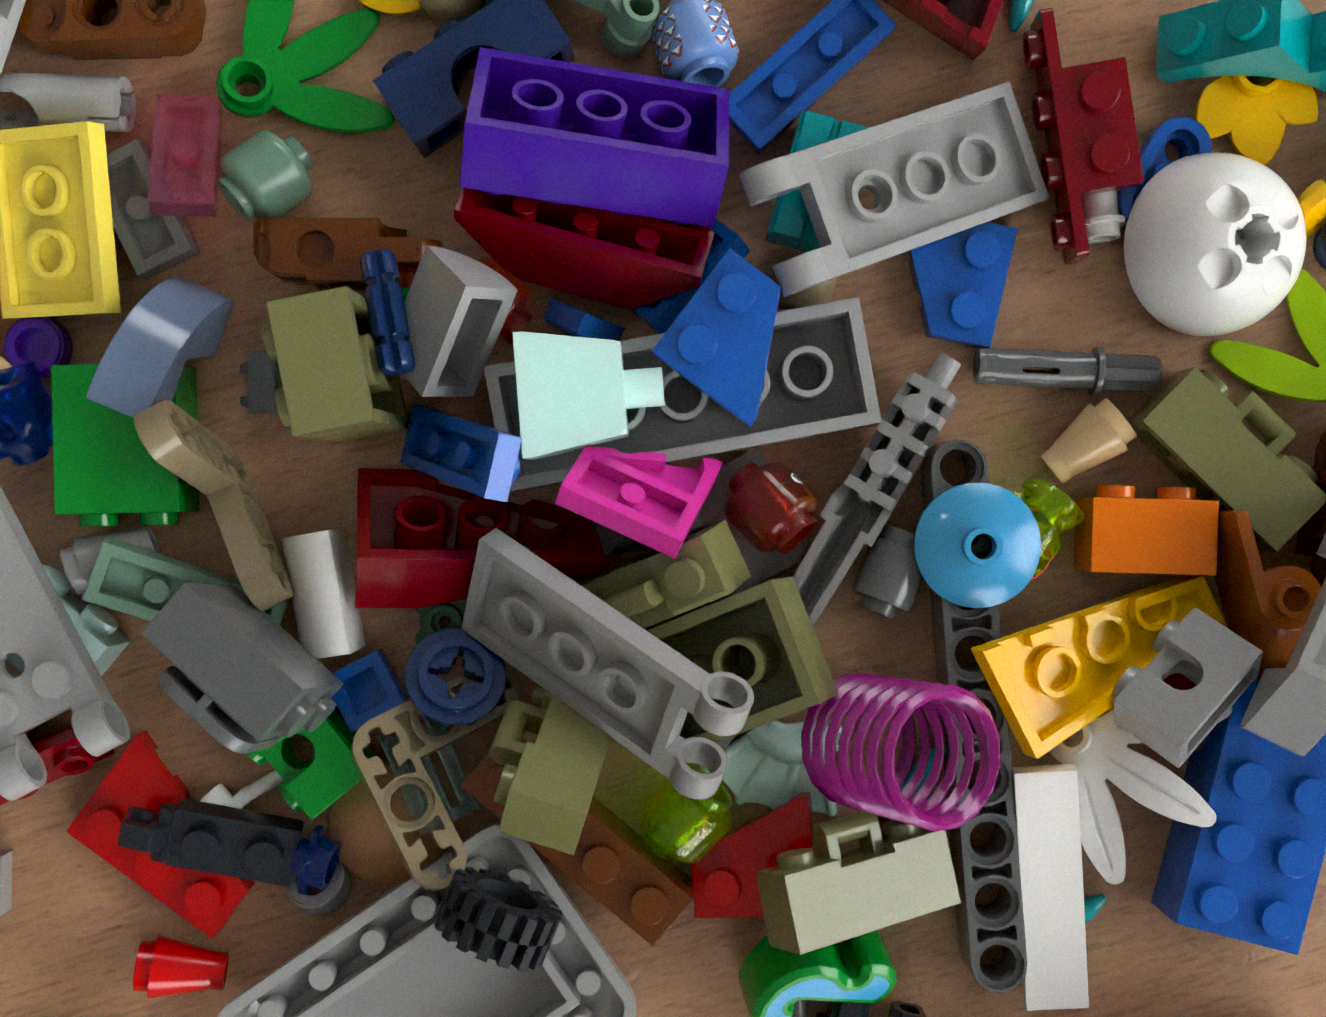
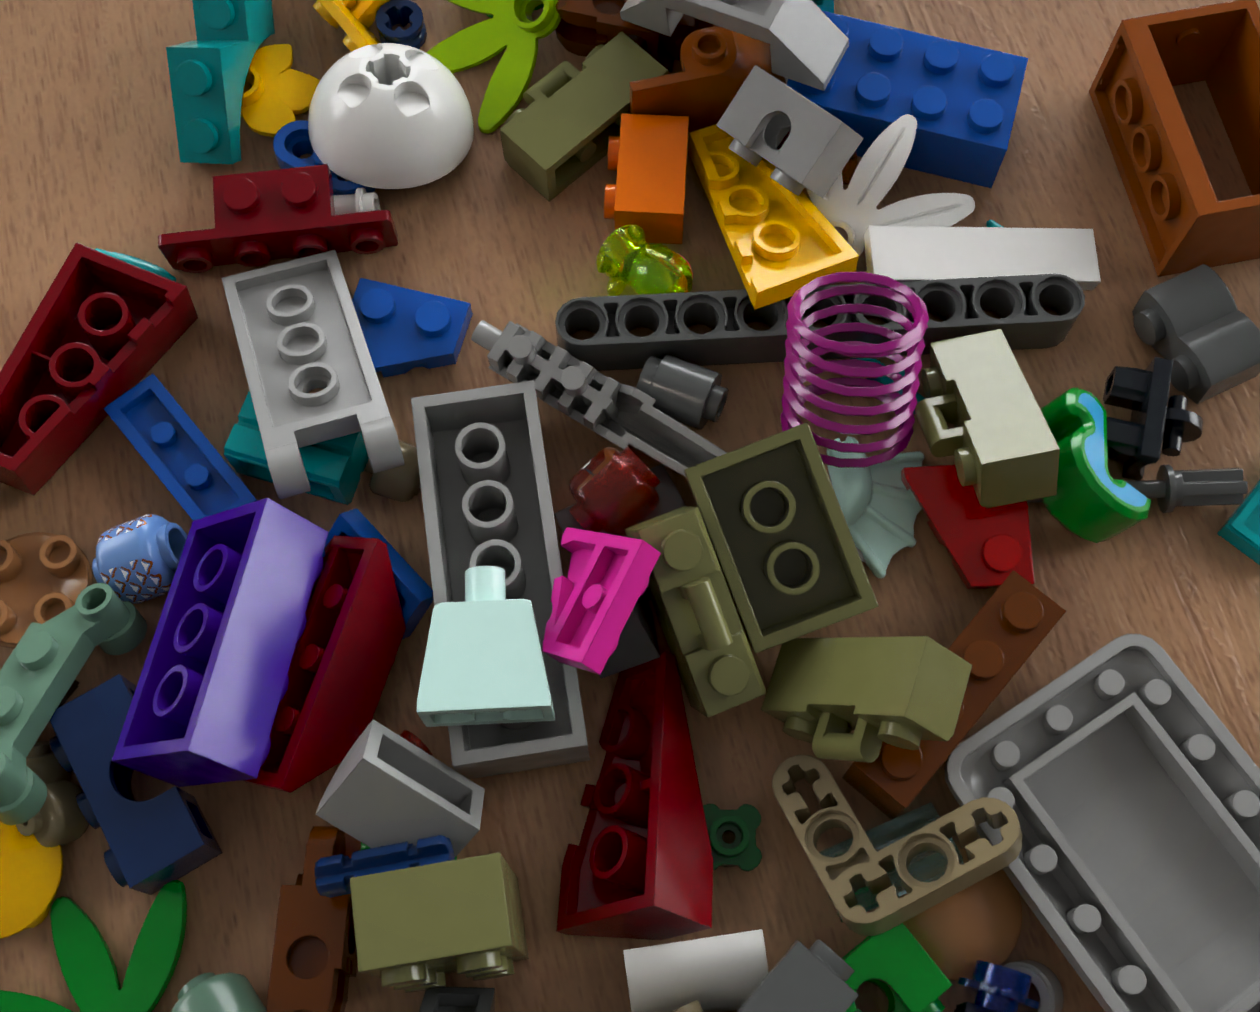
camera: 85 degrees left, 20 degrees down
(368, 689) = (805, 918): blue plate -> none
(436, 656) = (772, 792): dark blue gear -> none
(462, 452) = (542, 792): blue plate -> none
(498, 919) = (1047, 756): black tyre -> none
(580, 322) = (404, 697): blue tile -> none
(587, 655) = (757, 669): light grey hinge -> none
(685, 826) = (930, 587): clear neon green head -> none
(725, 336) = (440, 516): blue wing -> none
(945, 541) = (650, 328): dark azure dish -> none
(1069, 370) = (498, 221): dark grey axle -> none
(1089, 440) = (561, 221): tan cone -> none

